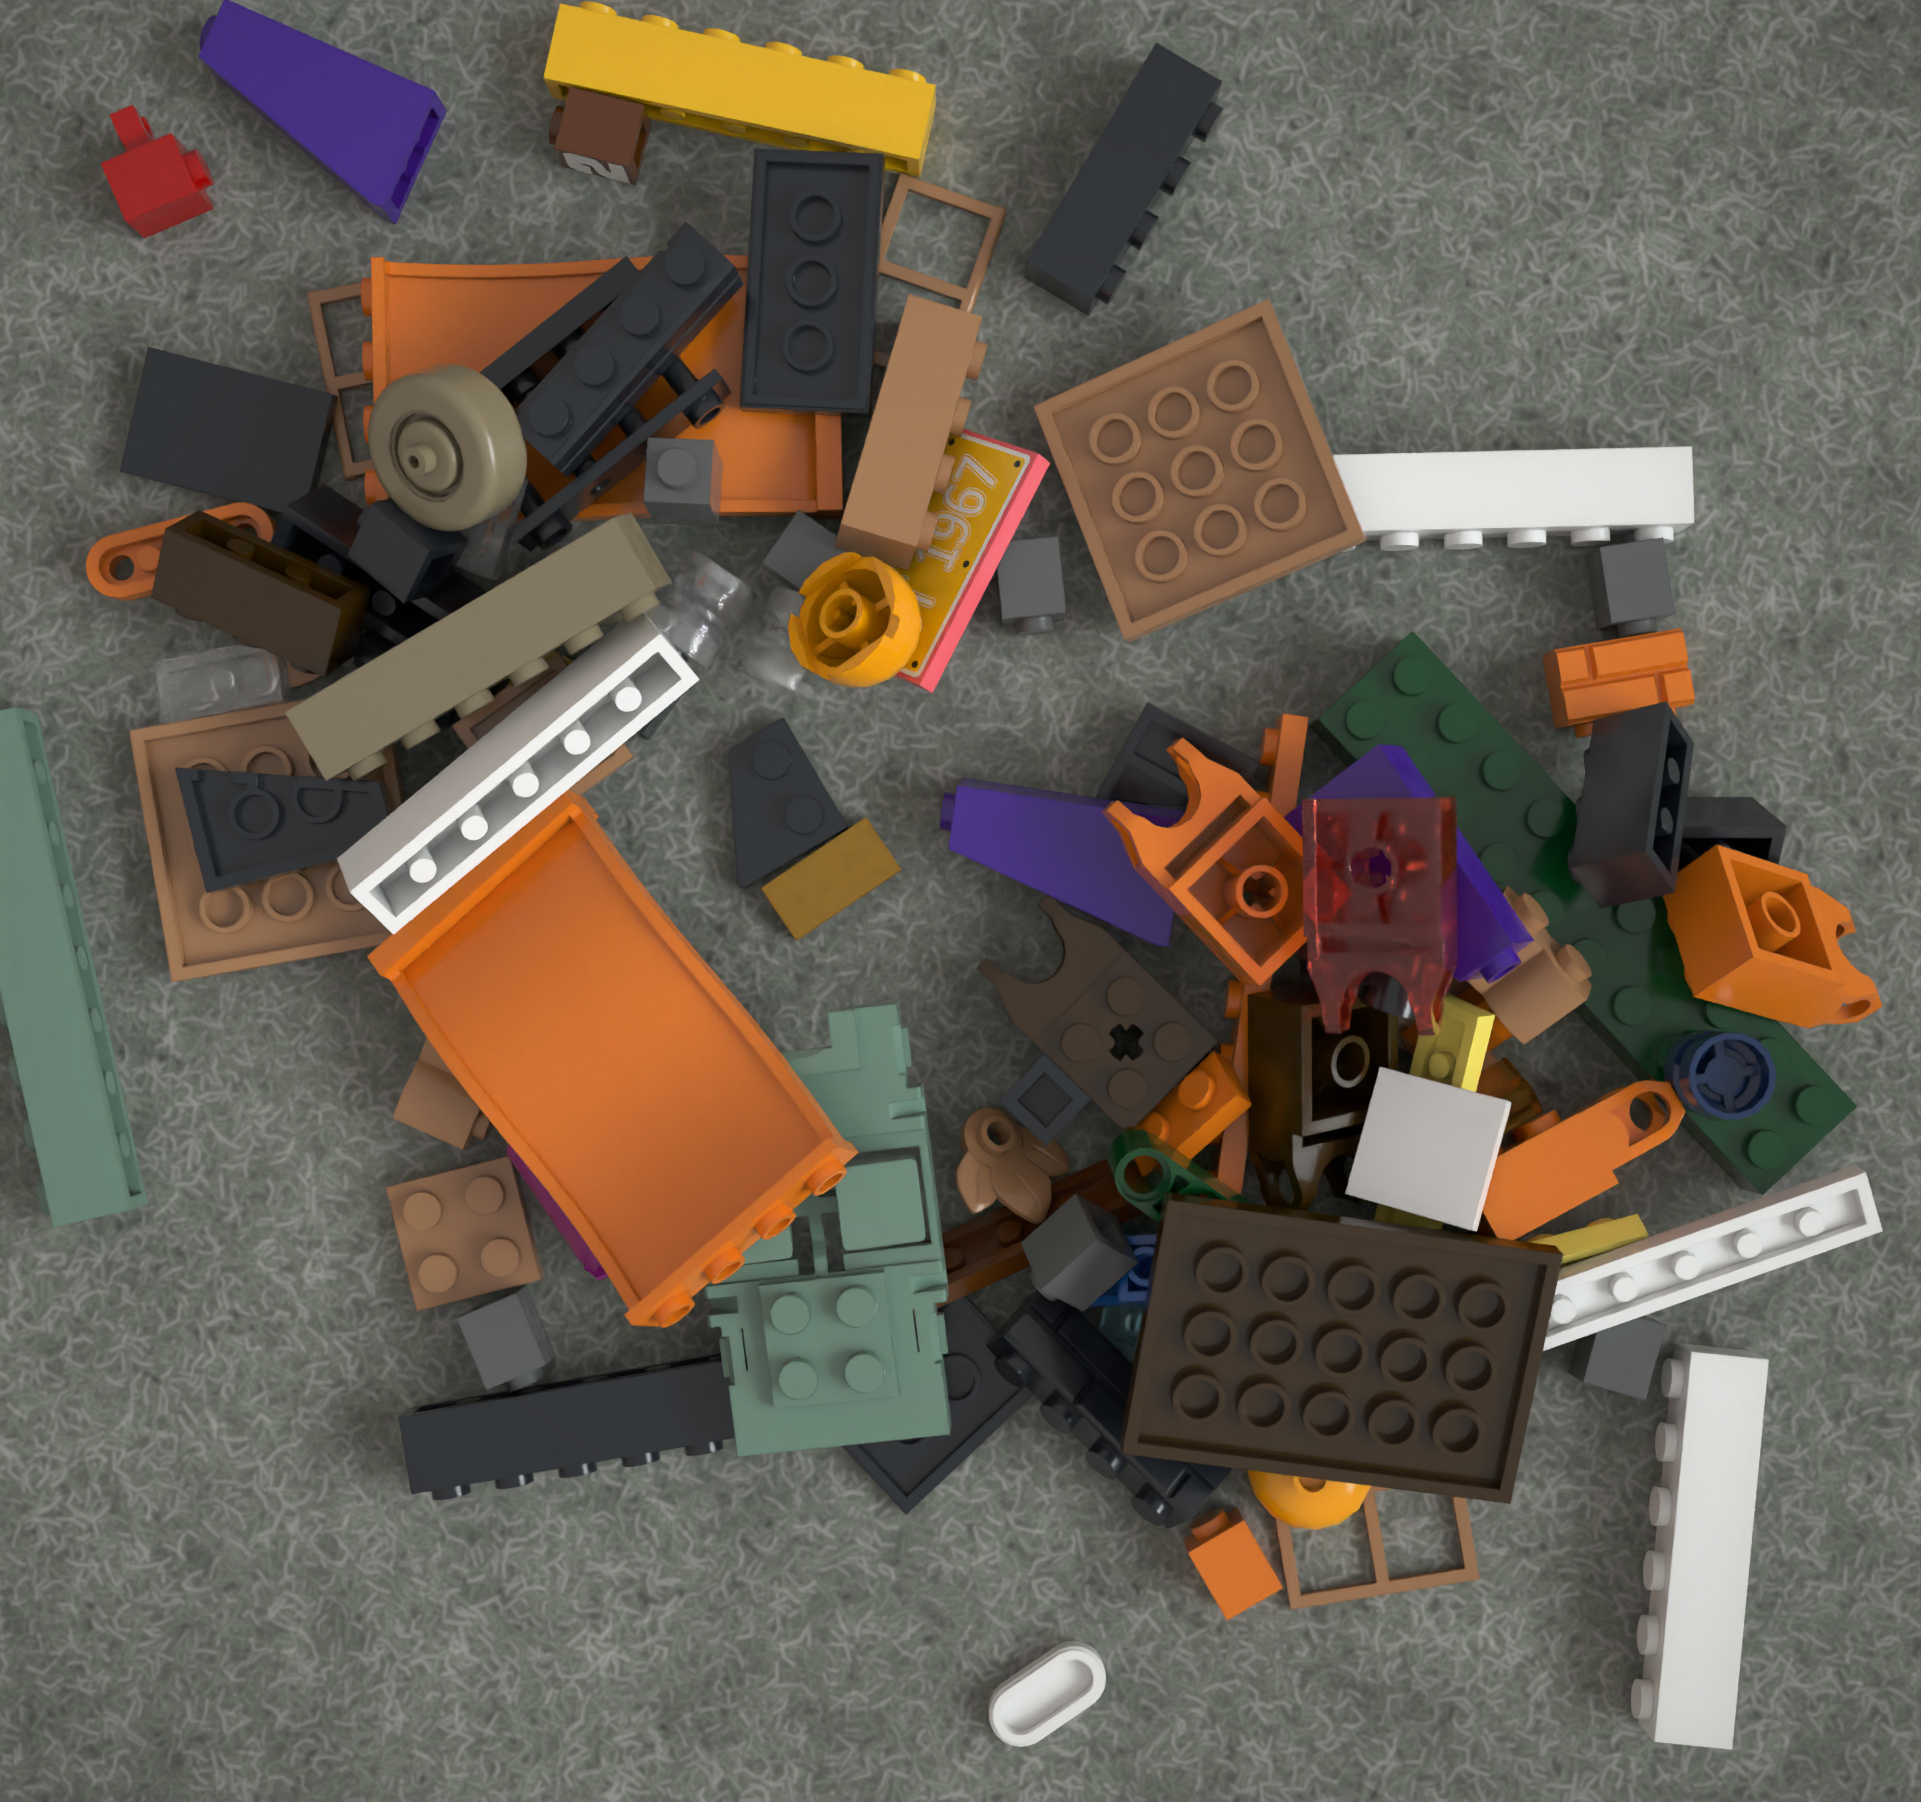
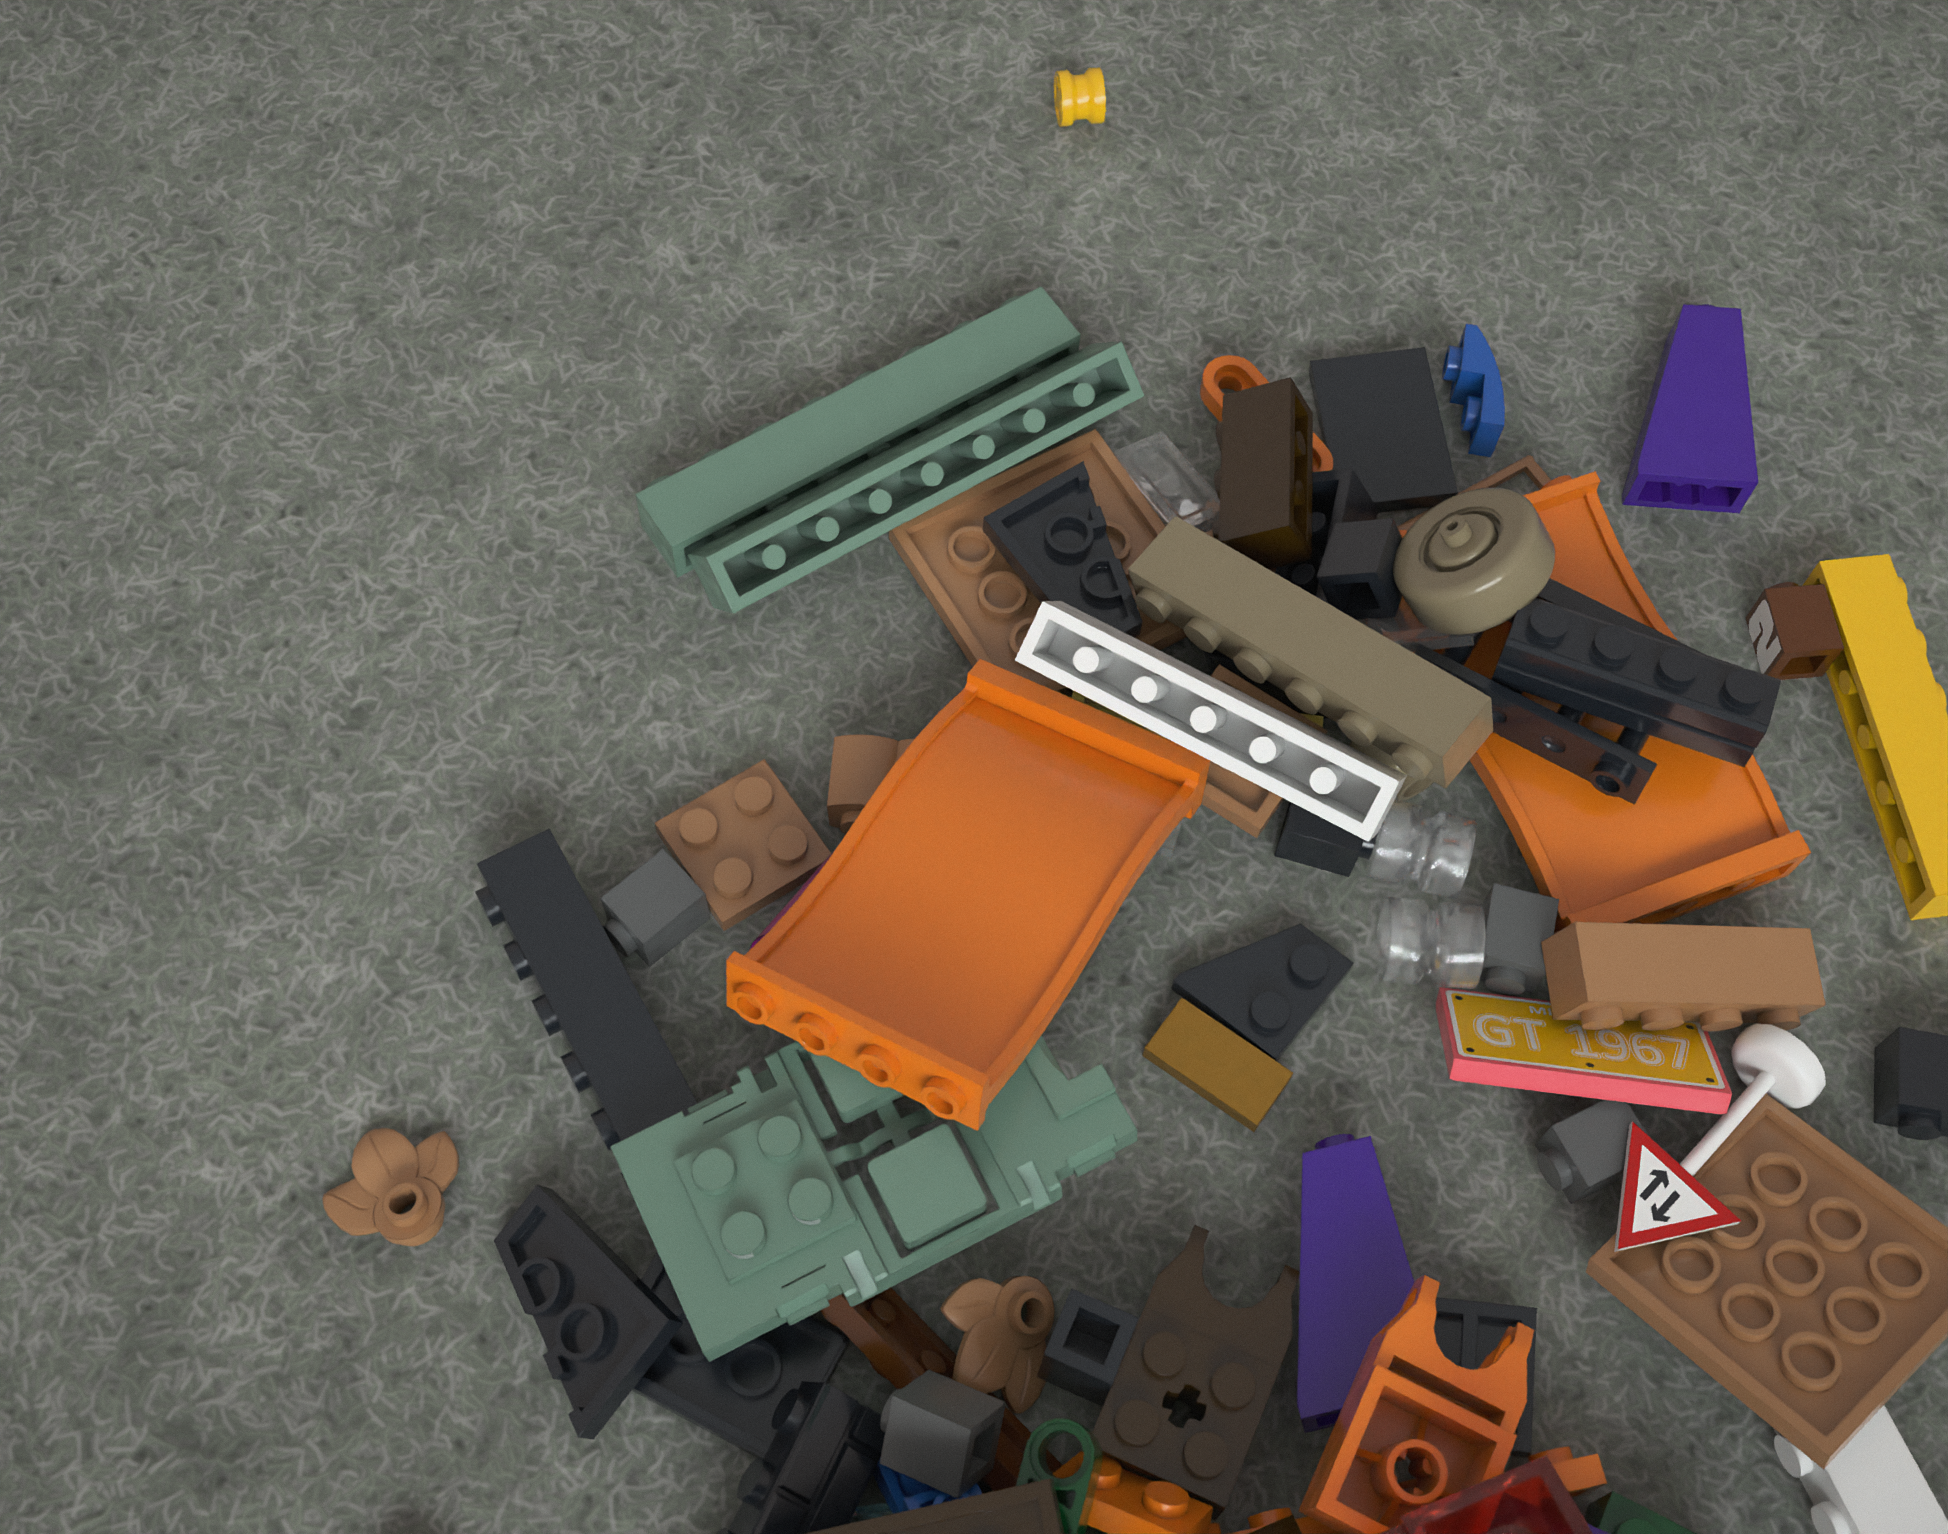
camera: 65 degrees right, 25 degrees down
(124, 930) = (914, 476): none -> sand green brick
(156, 178) = (1564, 313): red brick -> none
(206, 312) = (1478, 387): none -> blue slope
(678, 1642) = (389, 1178): none -> medium nougat plate
(683, 481) = (1537, 778): dark grey brick -> none
(812, 282) = (1773, 837): black tile -> none
(855, 621) = (1487, 977): light orange cylinder -> none
(860, 1504) = (588, 1304): none -> black wing
(965, 296) = (1812, 909): medium nougat window -> none
(1097, 551) = (1662, 1196): none -> white piece

